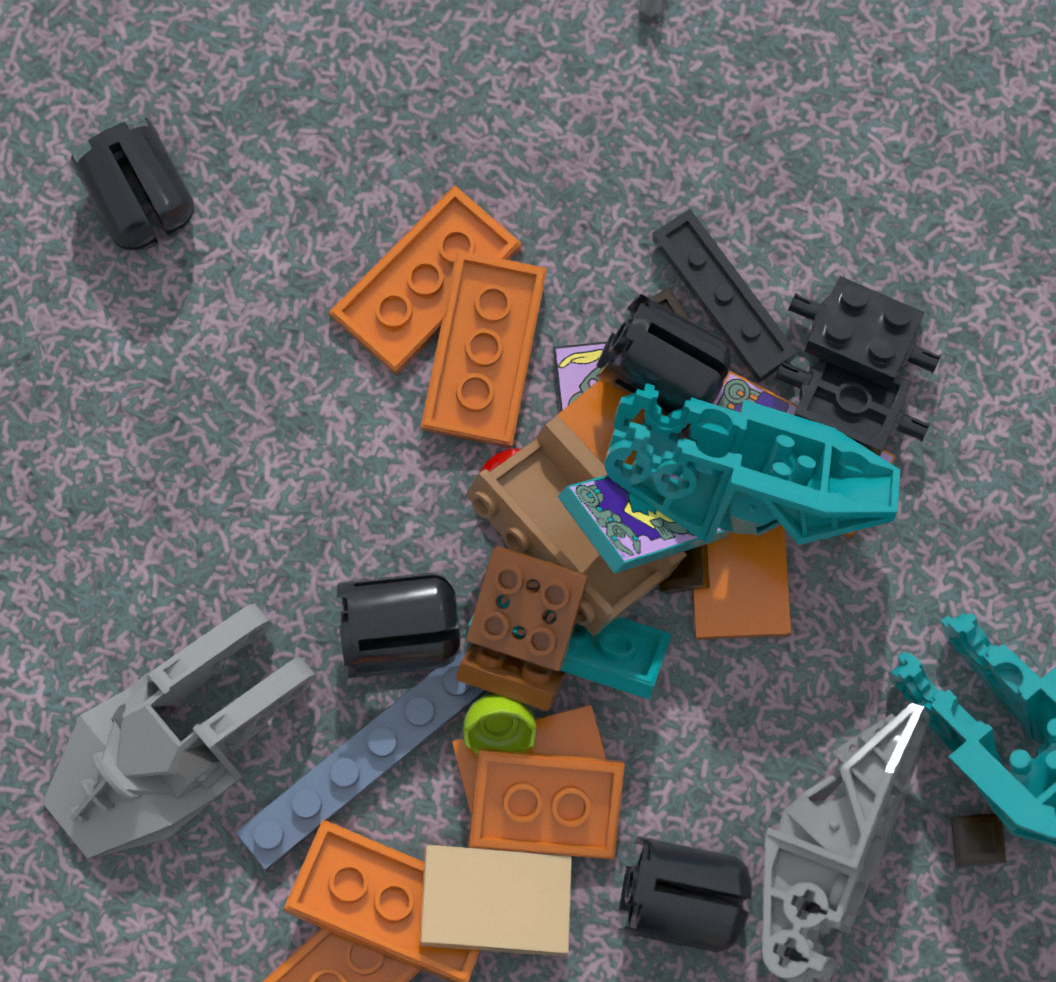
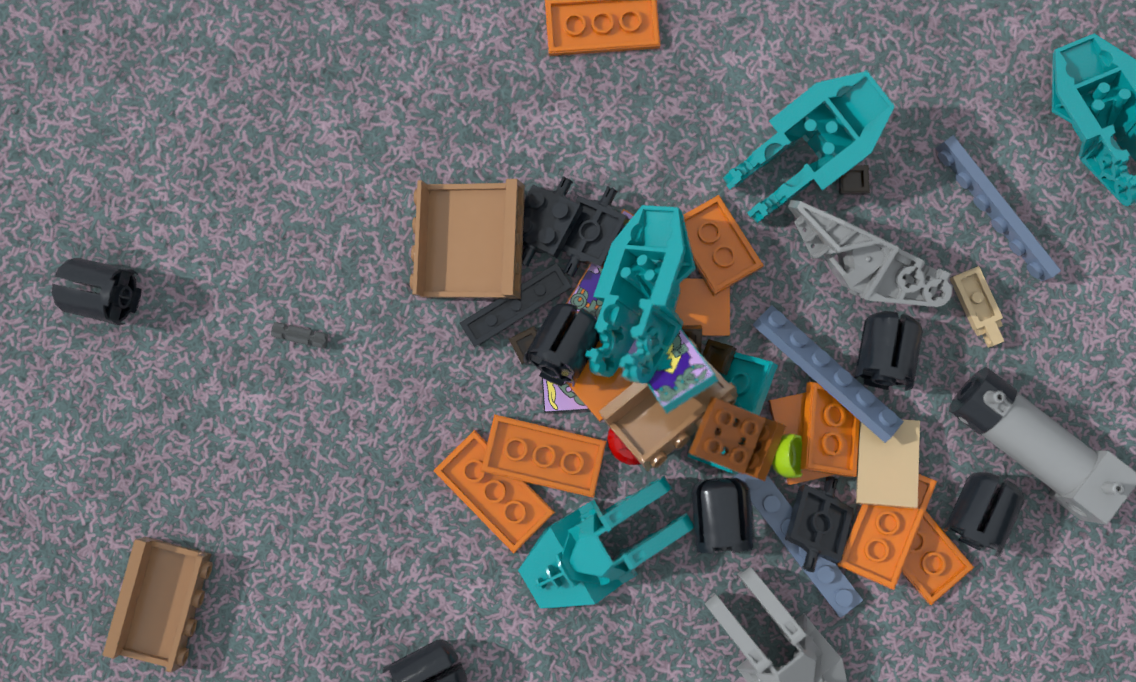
camera: 90 degrees left, 10 degrees up
(305, 391) = (571, 563): none -> teal connector
(389, 786) = (819, 524): none -> black plate
(639, 794) = (828, 373): none -> sand blue plate
(658, 617) = (719, 355): none -> dark brown tile
(824, 213) = (468, 240): none -> medium nougat panel
(846, 608) = (719, 246): none -> orange tile

